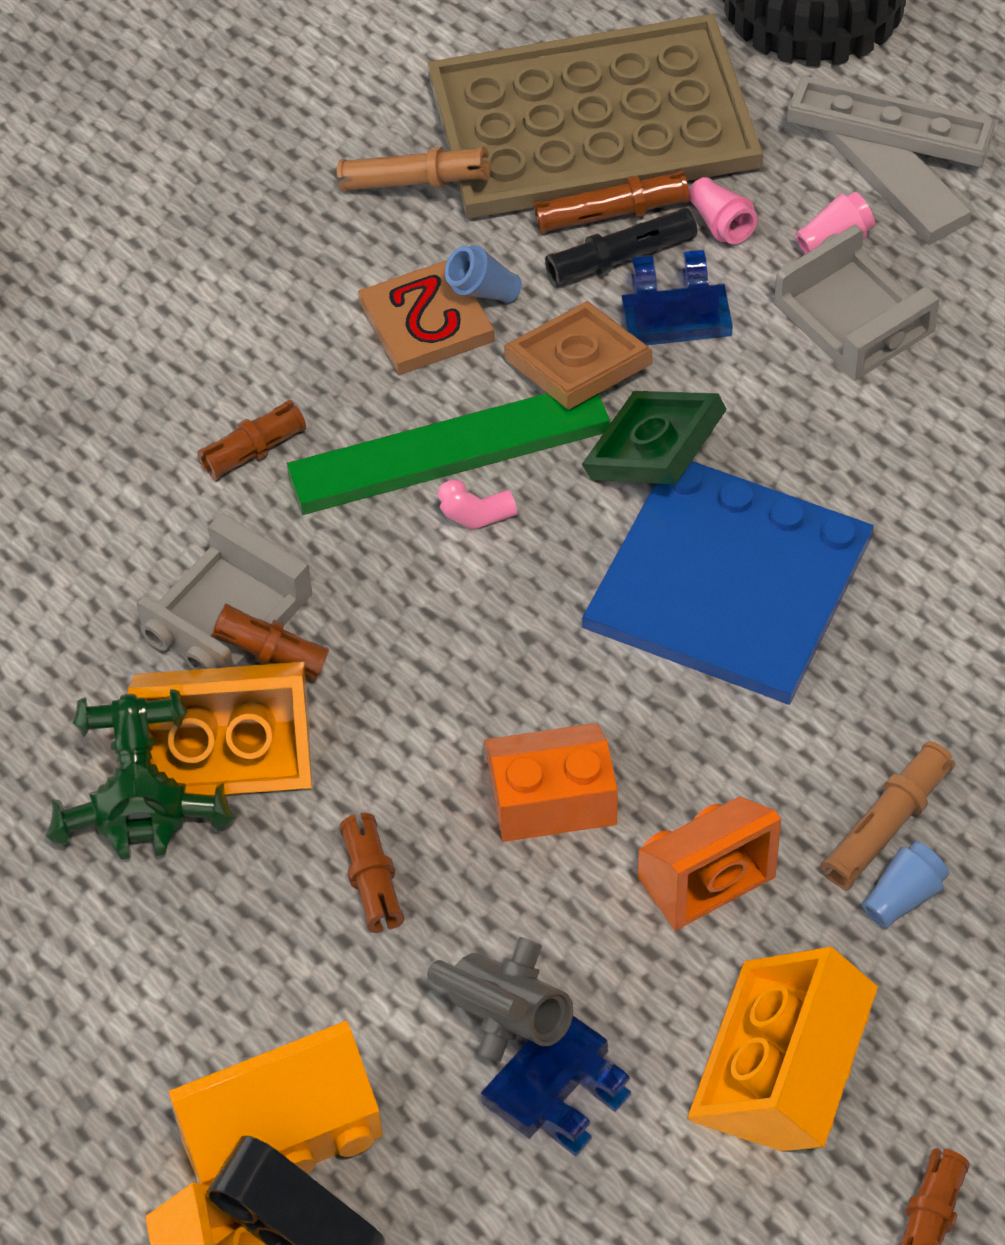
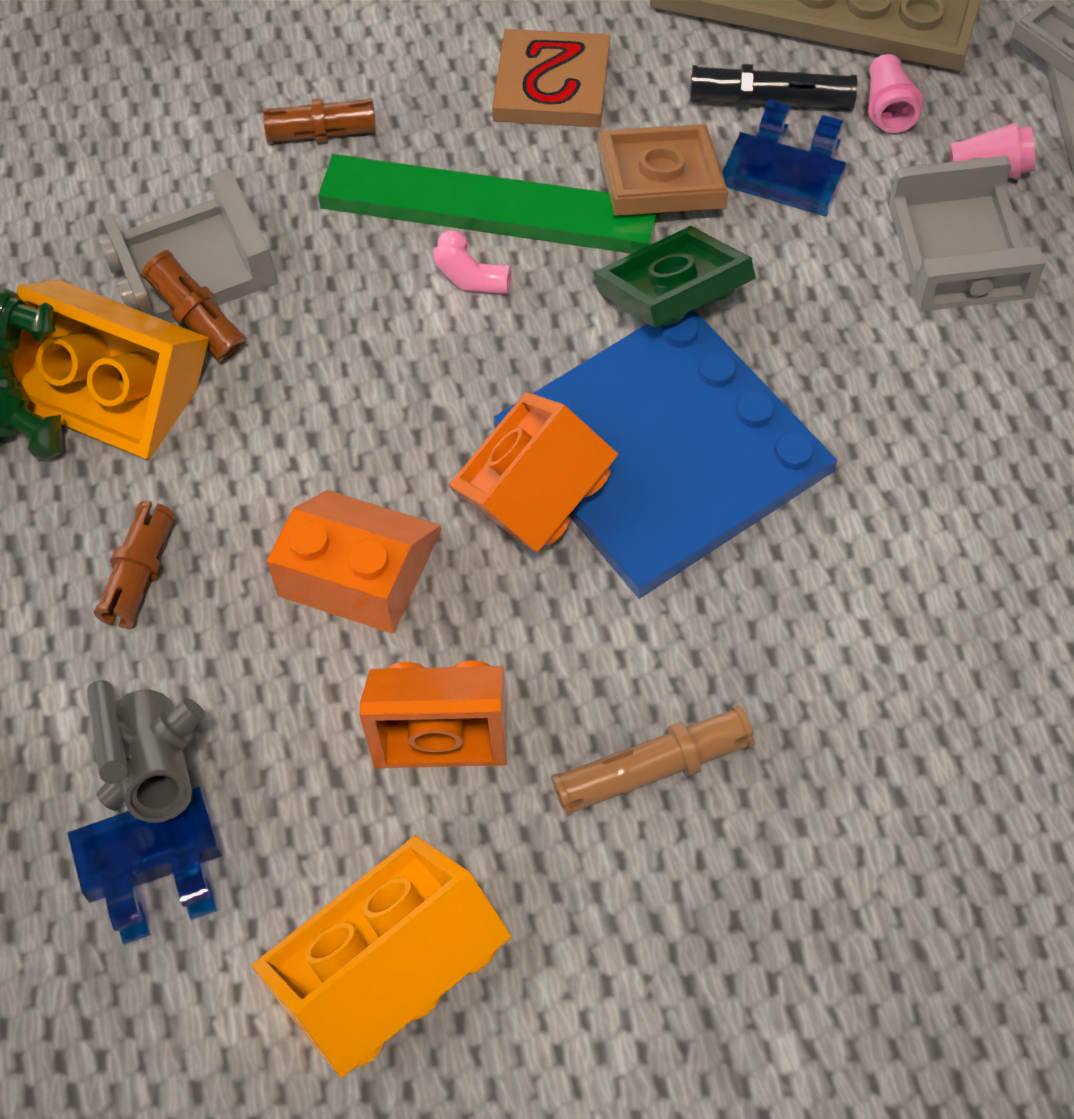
camera: 30 degrees right, 5 degrees up
(478, 274) = (615, 57): medium blue cone -> none
(610, 202) = (792, 44): dark orange pin -> none
(652, 639) = (535, 470): none -> orange slope
(907, 882) = (620, 843): medium blue cone -> none

